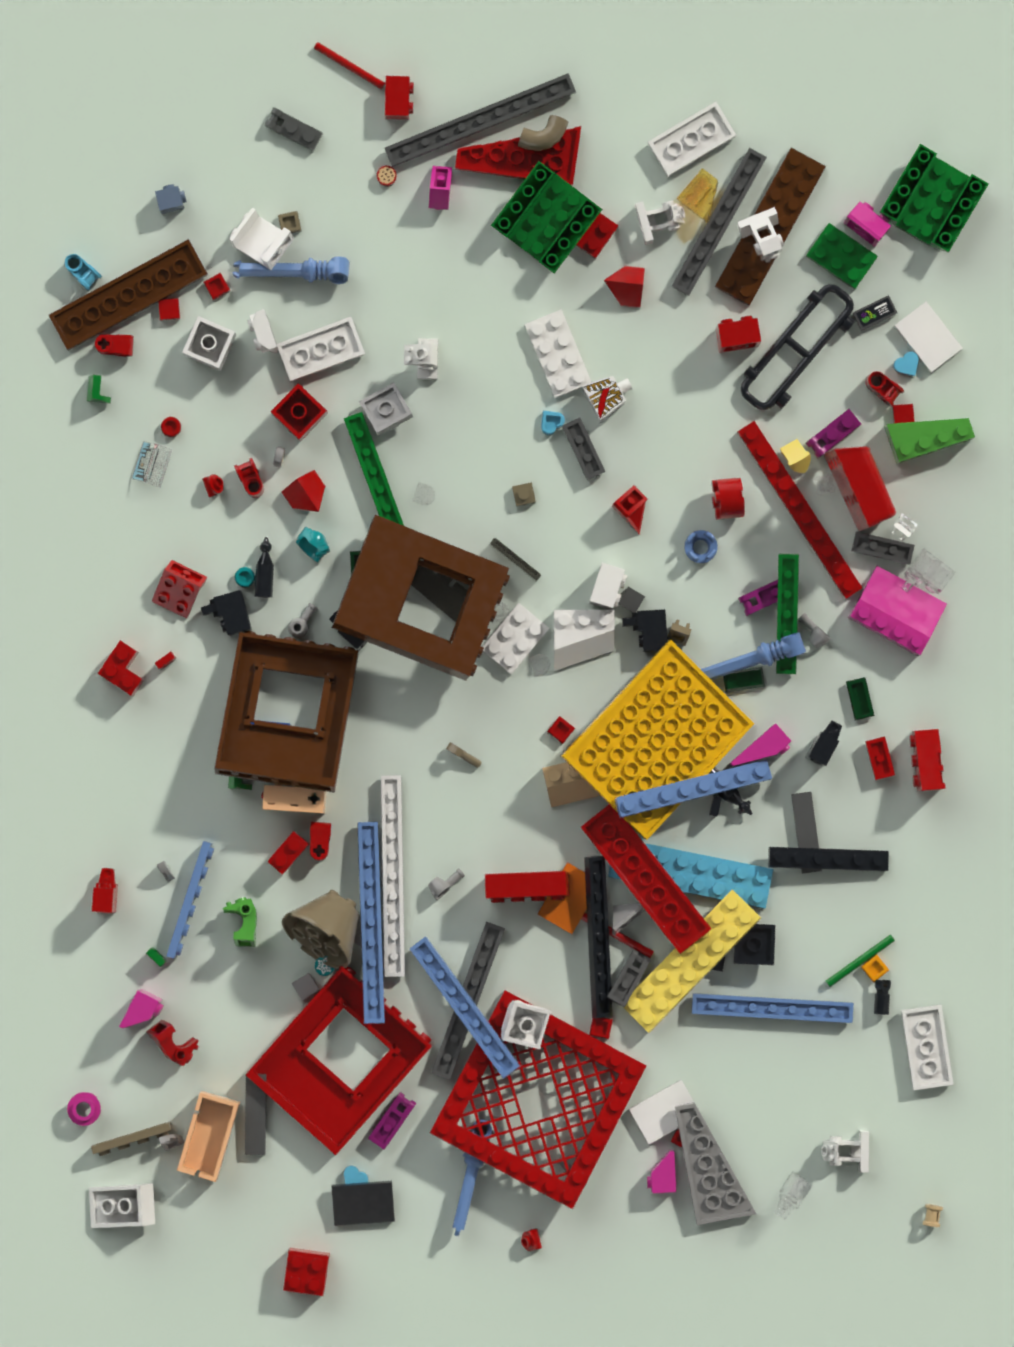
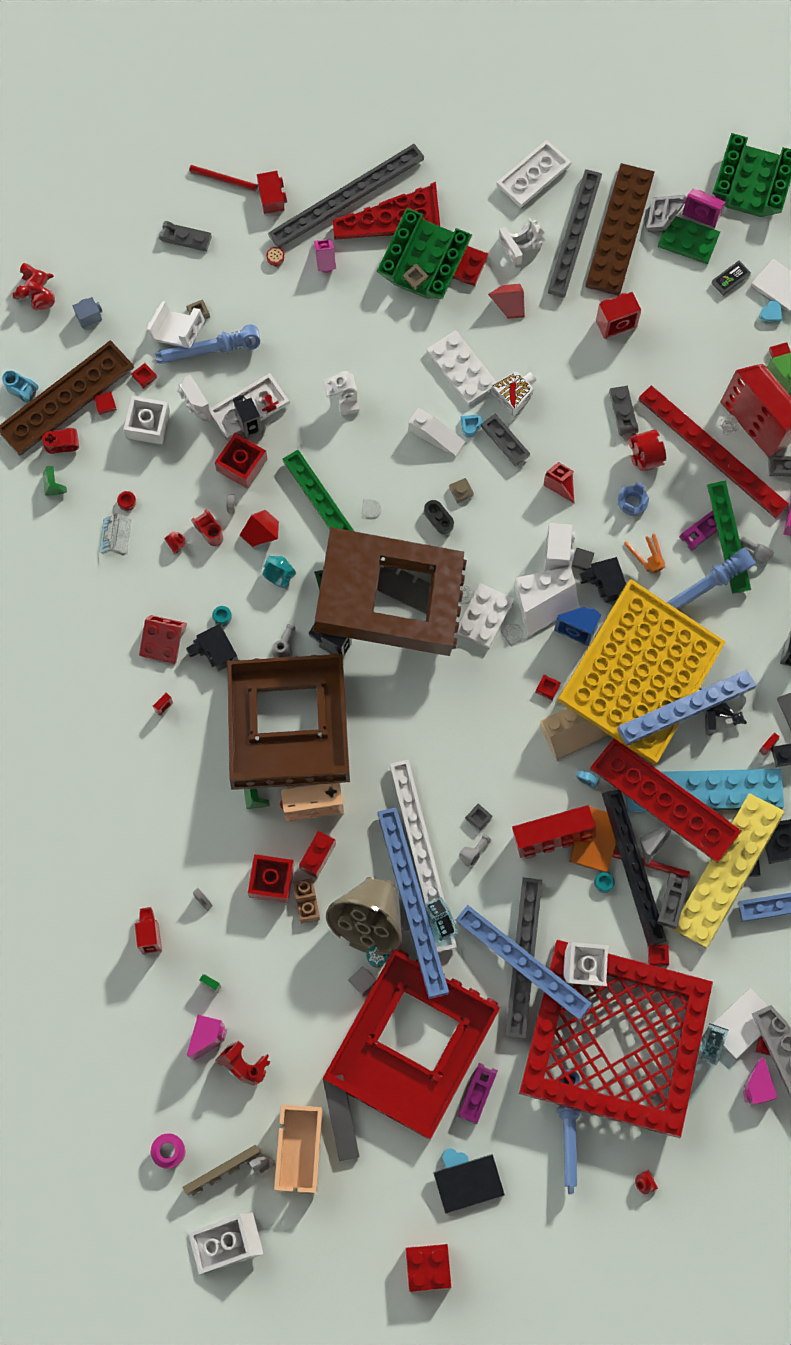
camera: 10 degrees left, 15 degrees down
(117, 671) = (119, 720): red brick -> none
(123, 171) = (35, 280): none -> red animal
(188, 908) = (231, 928): medium blue plate -> none
(237, 867) = (271, 878): none -> red brick
(247, 934) = (289, 918): bright green tile -> none
(264, 572) = (239, 607): black wheel -> none
(268, 895) = (306, 900): none -> medium nougat slope
(314, 364) = (247, 416): none -> black hinge
(320, 836) = (344, 835): red piece -> none
(343, 357) = (270, 406): none -> red plate
(386, 409) = (319, 443): light grey hinge -> none
(394, 945) = (441, 919): none -> slope
(458, 849) = (478, 817): none -> dark grey tile
(464, 755) = (456, 725): dark tan bar -> none
(493, 520) = (439, 517): none -> pearl dark grey plate
(512, 425) = (435, 432): none -> white slope
(515, 559) = (468, 545): clear smoke tile -> none
(531, 241) = (415, 276): none -> dark tan plate
(545, 138) = (407, 193): dark tan cylinder -> none
(566, 943) = (604, 882): none -> teal tile
(575, 835) = (587, 778): none -> medium azure tile
(608, 674) = (578, 624): none -> blue slope
(628, 1128) = (713, 1044): none -> clear light blue slope
(679, 633) = (636, 575): dark tan tile -> none
(700, 194) = (553, 214): clear yellow wing -> none
(705, 621) = (655, 562): none -> orange plant
(717, 441) = (623, 410): none -> dark grey plate
(744, 679) = (704, 606): dark green tile -> none
(768, 744) = (742, 658): dark pink slope -> none
(768, 841) = (766, 747): none -> red tile
(769, 246) = (622, 230): white tile -> none
(781, 397) = (669, 360): black bar -> none
(796, 456) = (698, 406): light yellow tile -> none
(822, 219) = (663, 211): none -> light grey wing
(834, 433) = (722, 381): magenta plate -> none
(885, 388) = (758, 333): red piece -> none

